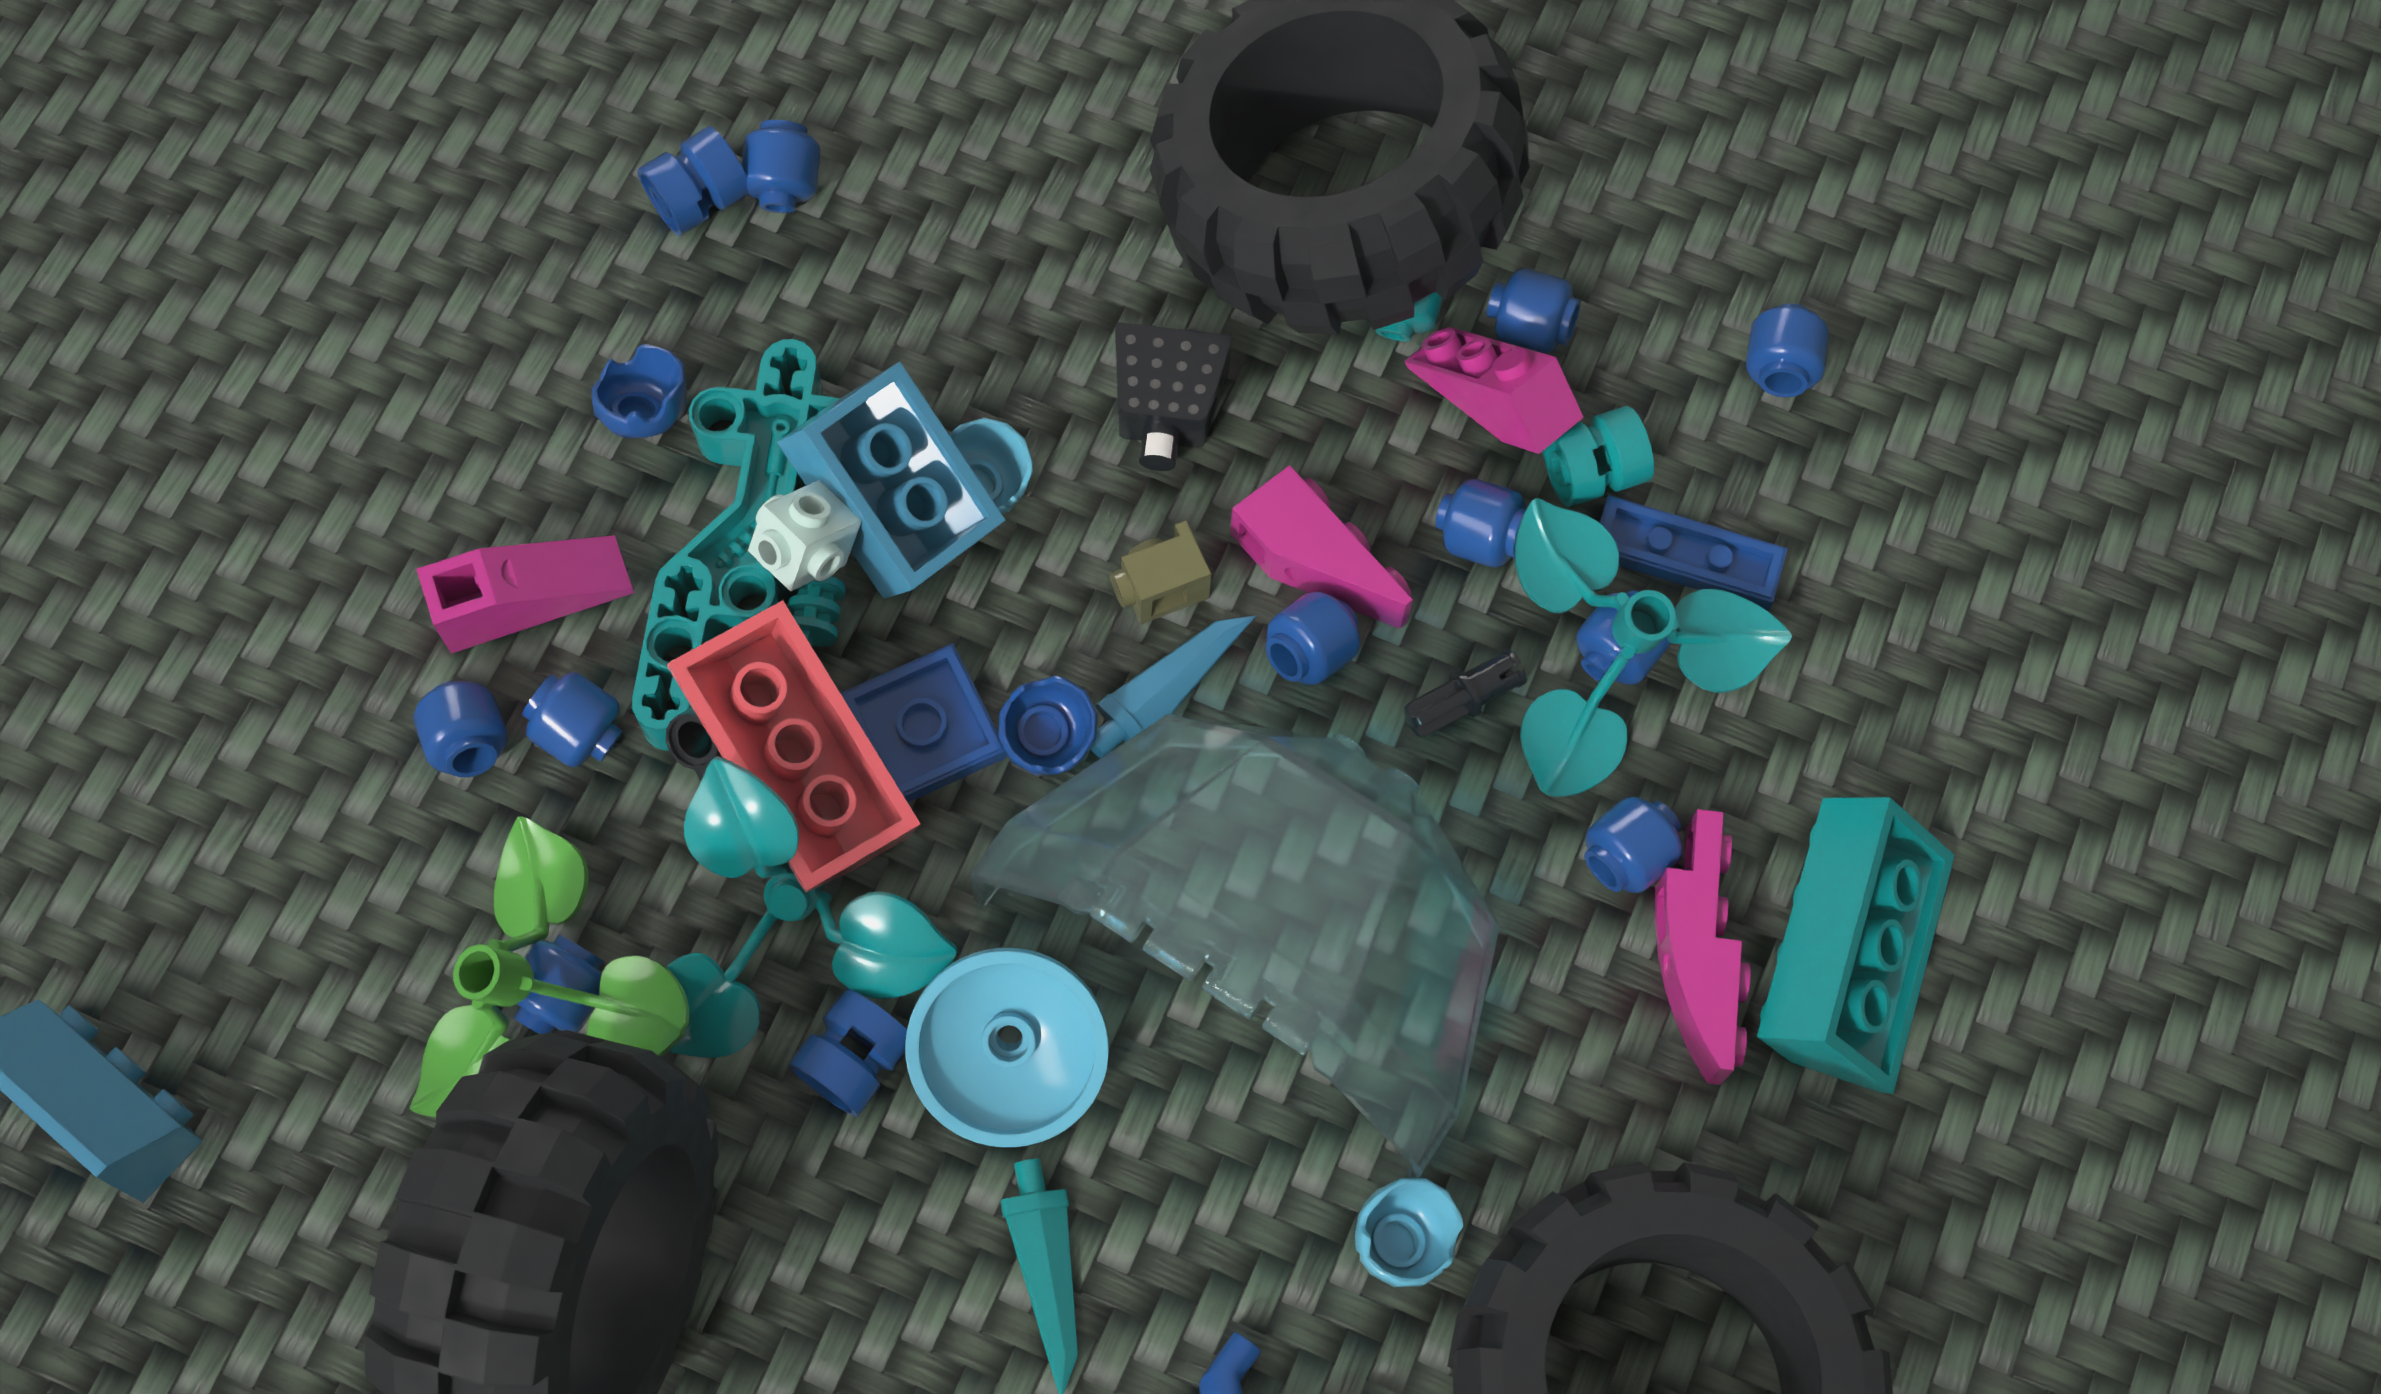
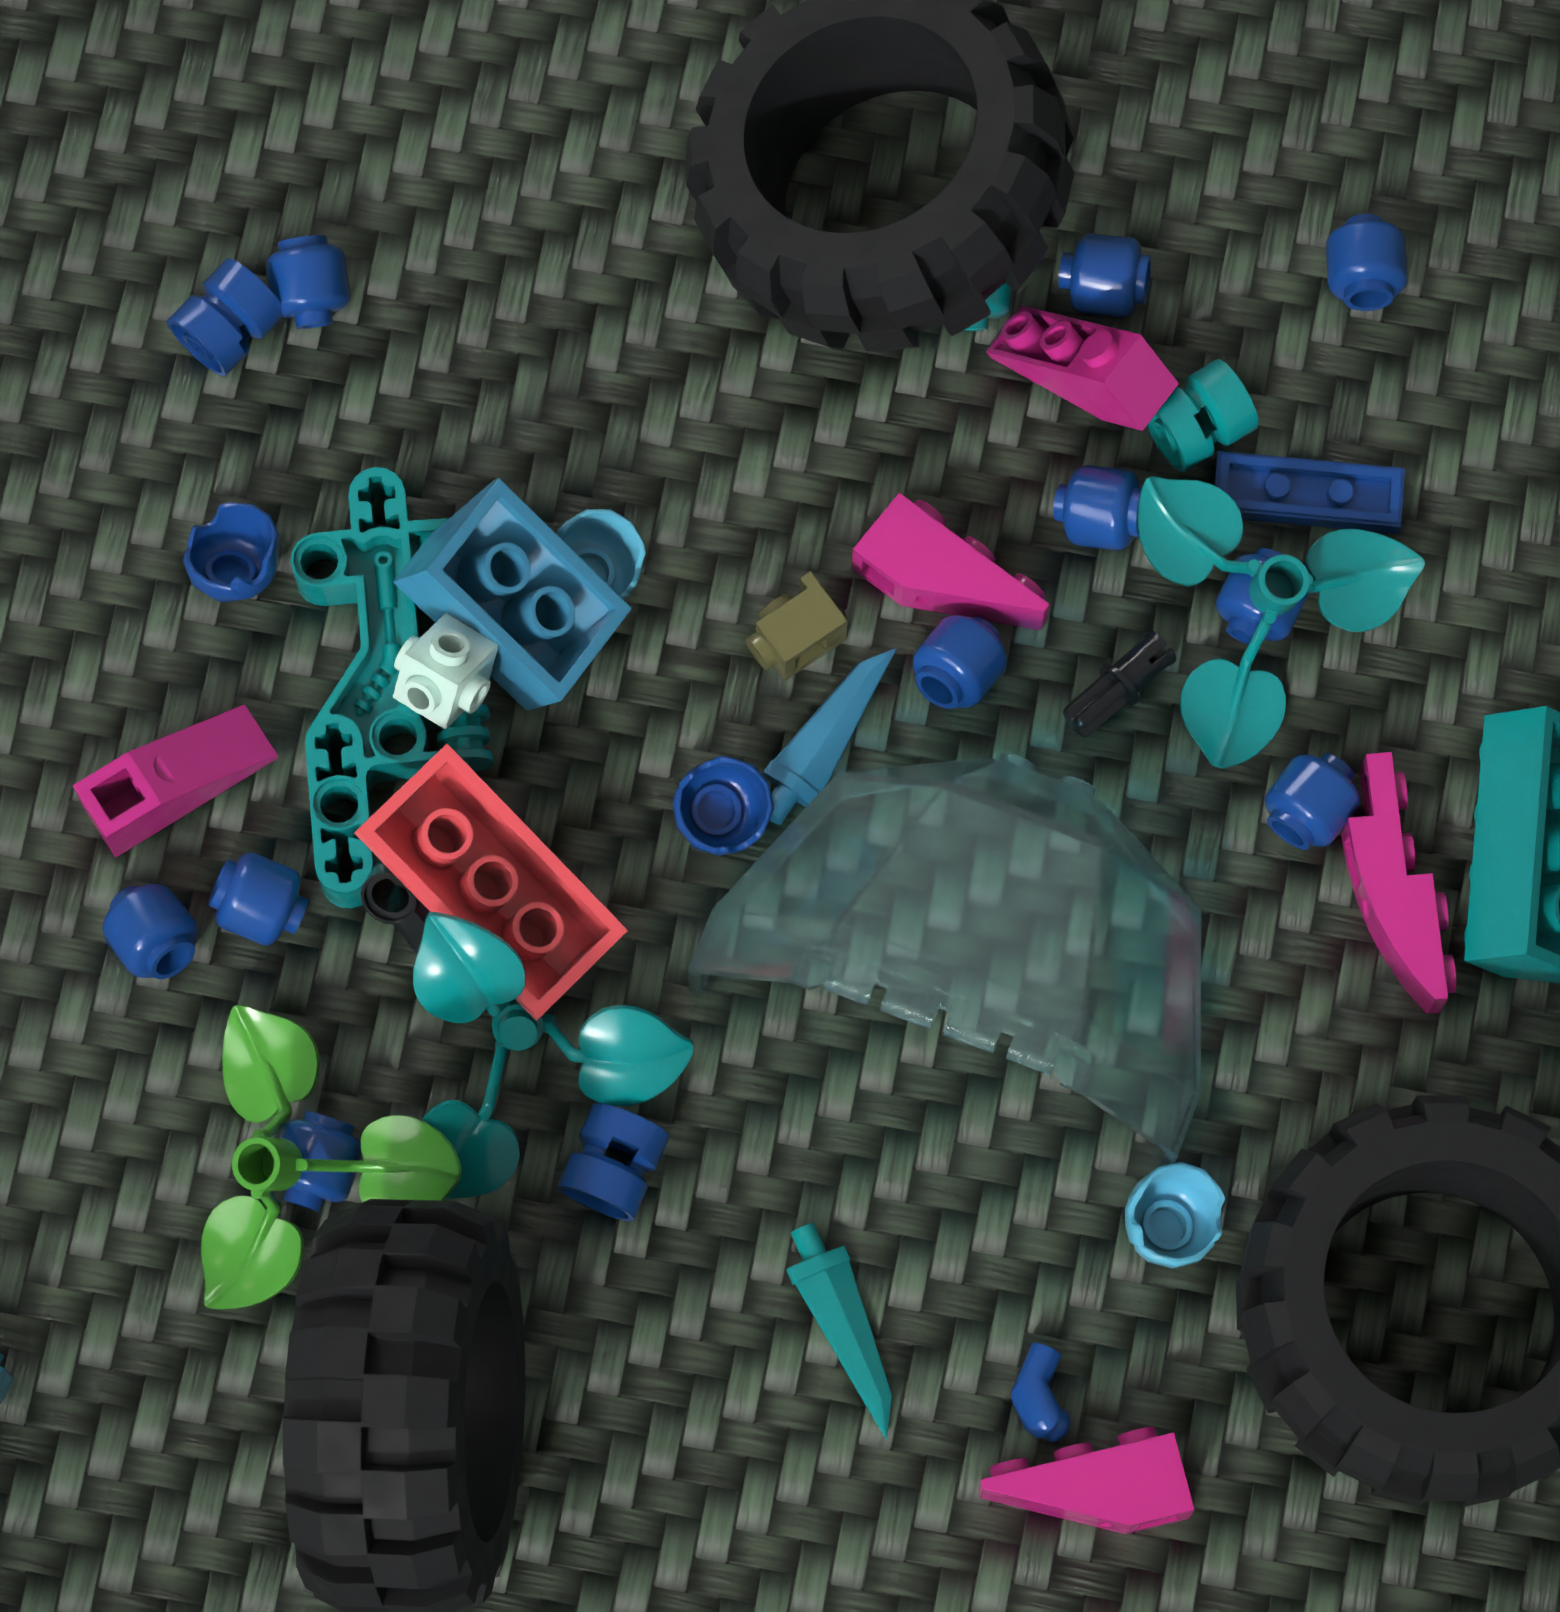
camera: 10 degrees left, 5 degrees up
(926, 722) = (602, 824): blue tile -> none
(996, 1088) = (771, 1163): medium azure dish -> none
(1168, 388) = (756, 435): black torso -> none

